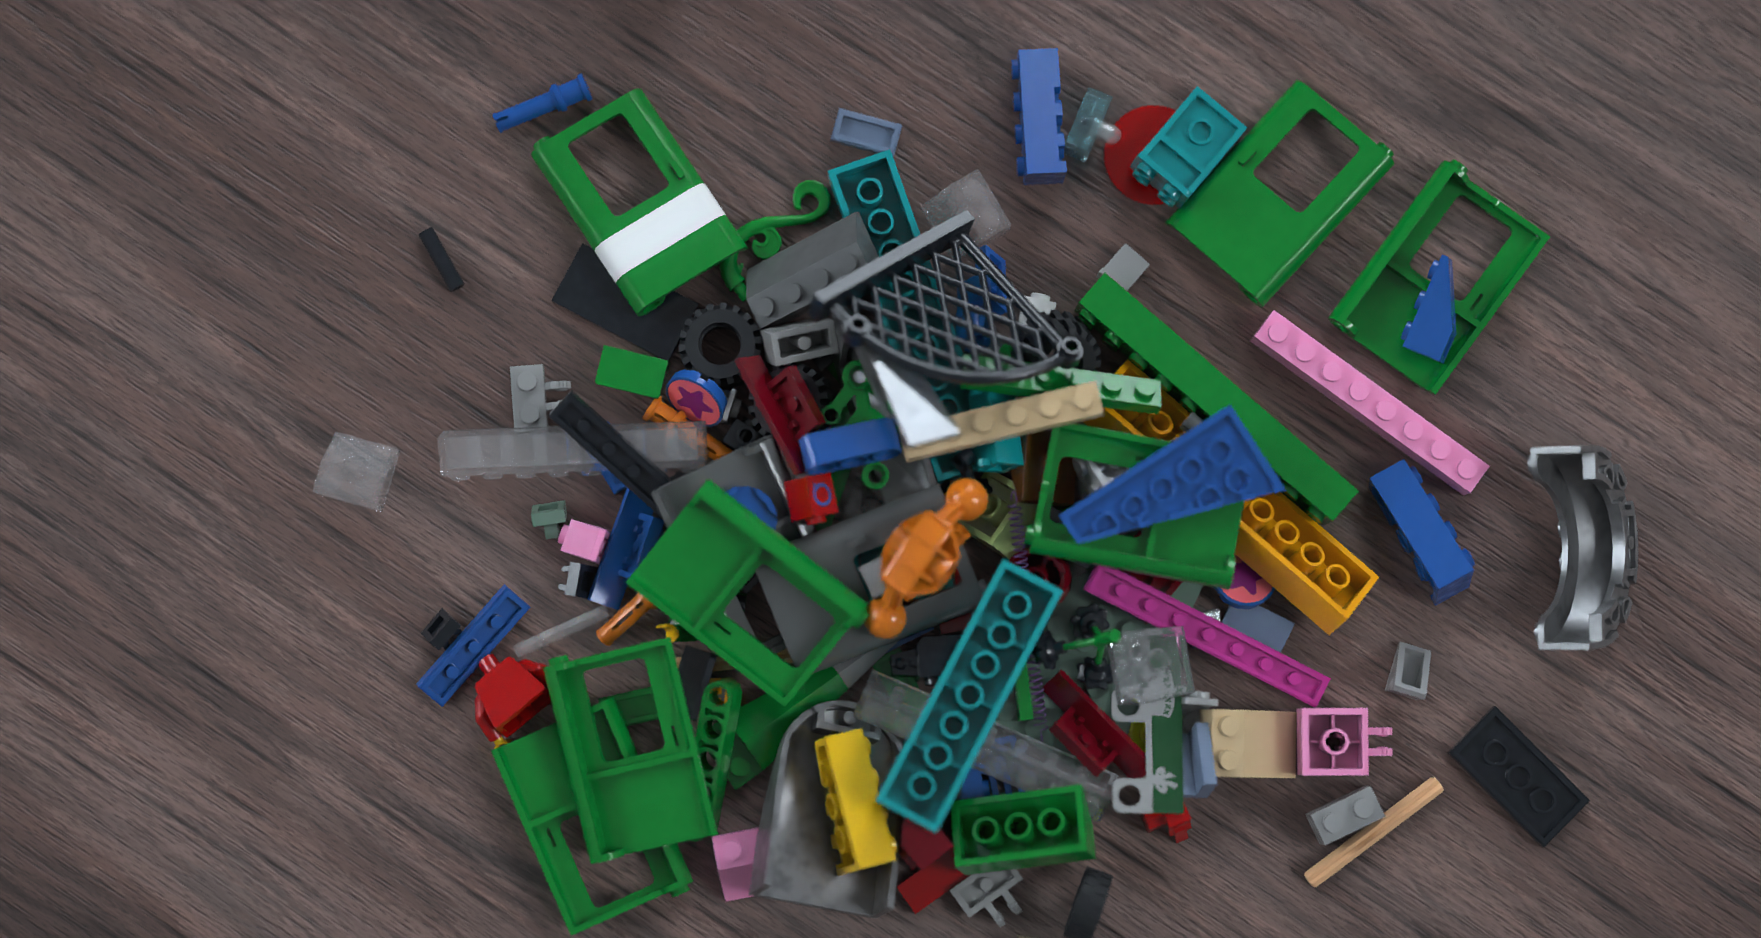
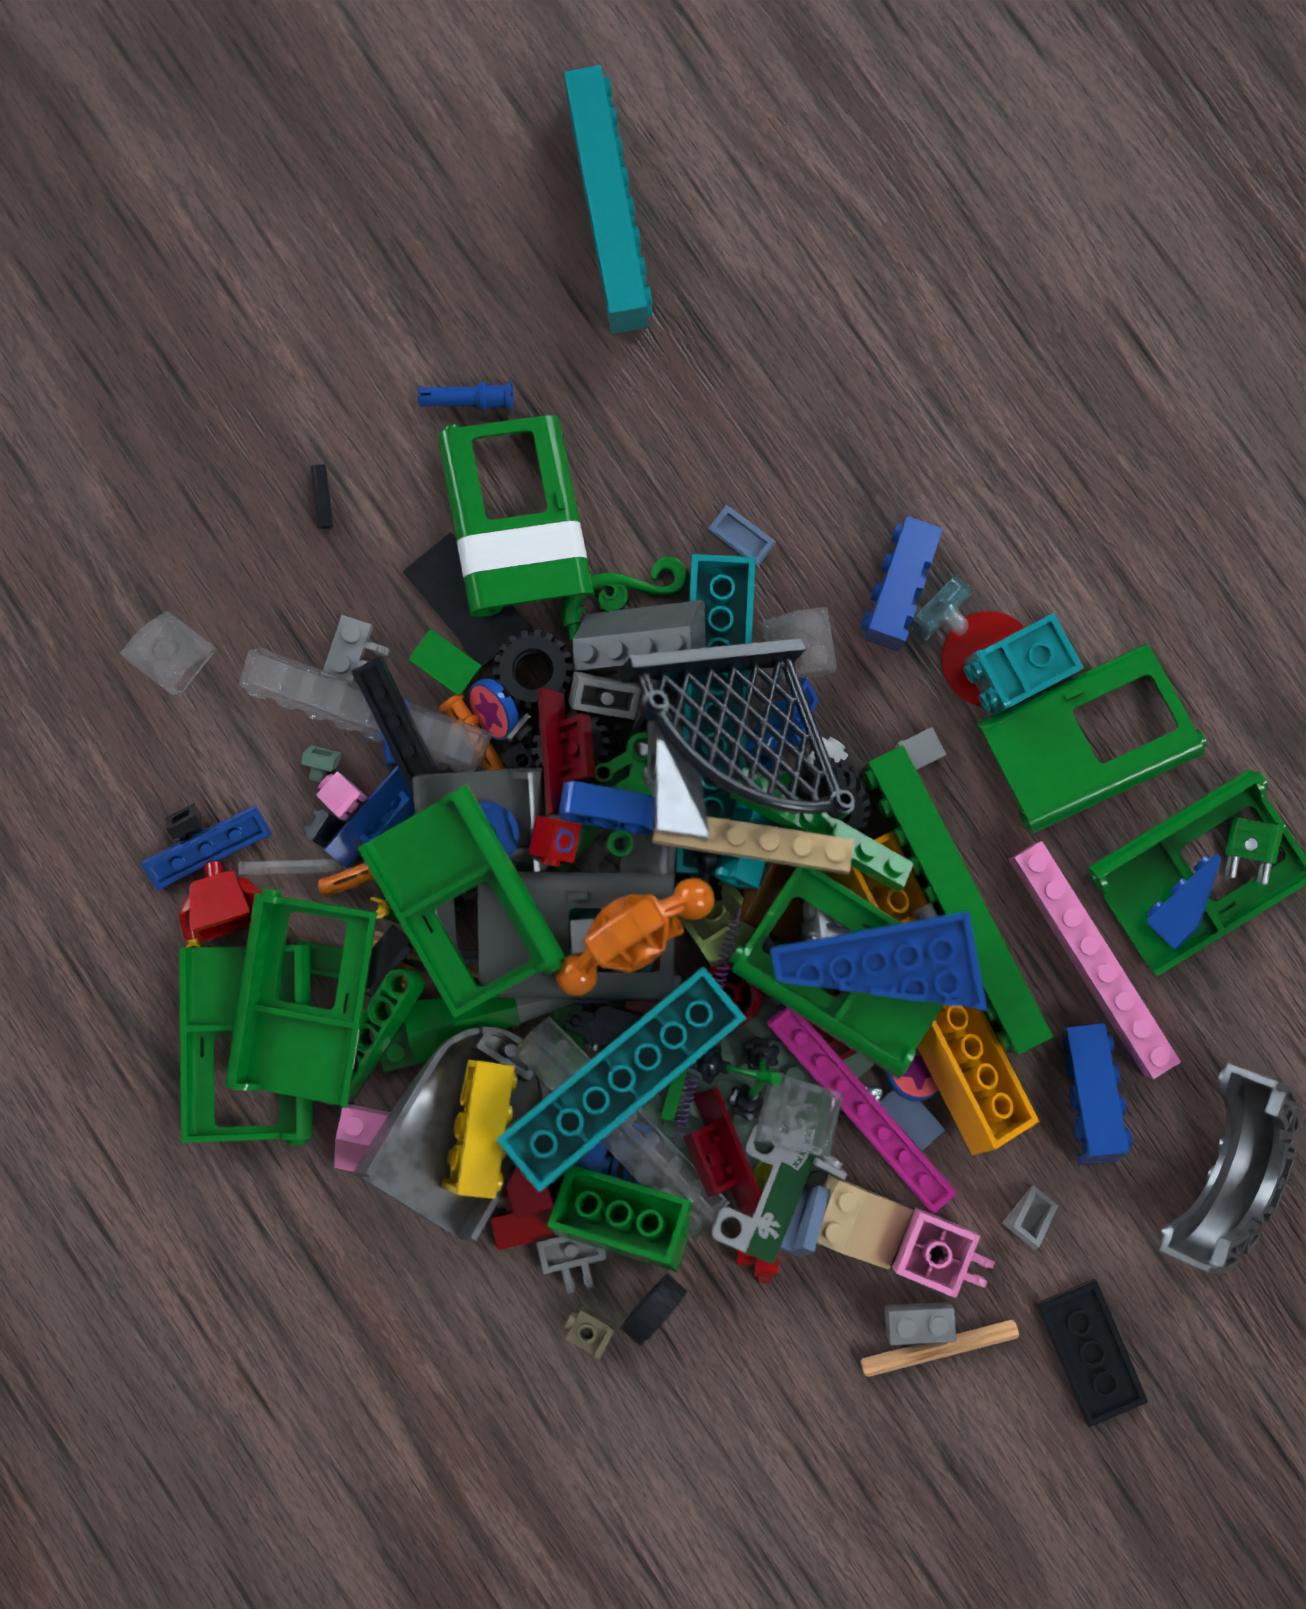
camera: 30 degrees right, 0 degrees up
(1474, 229) = (1255, 842): none -> green piece

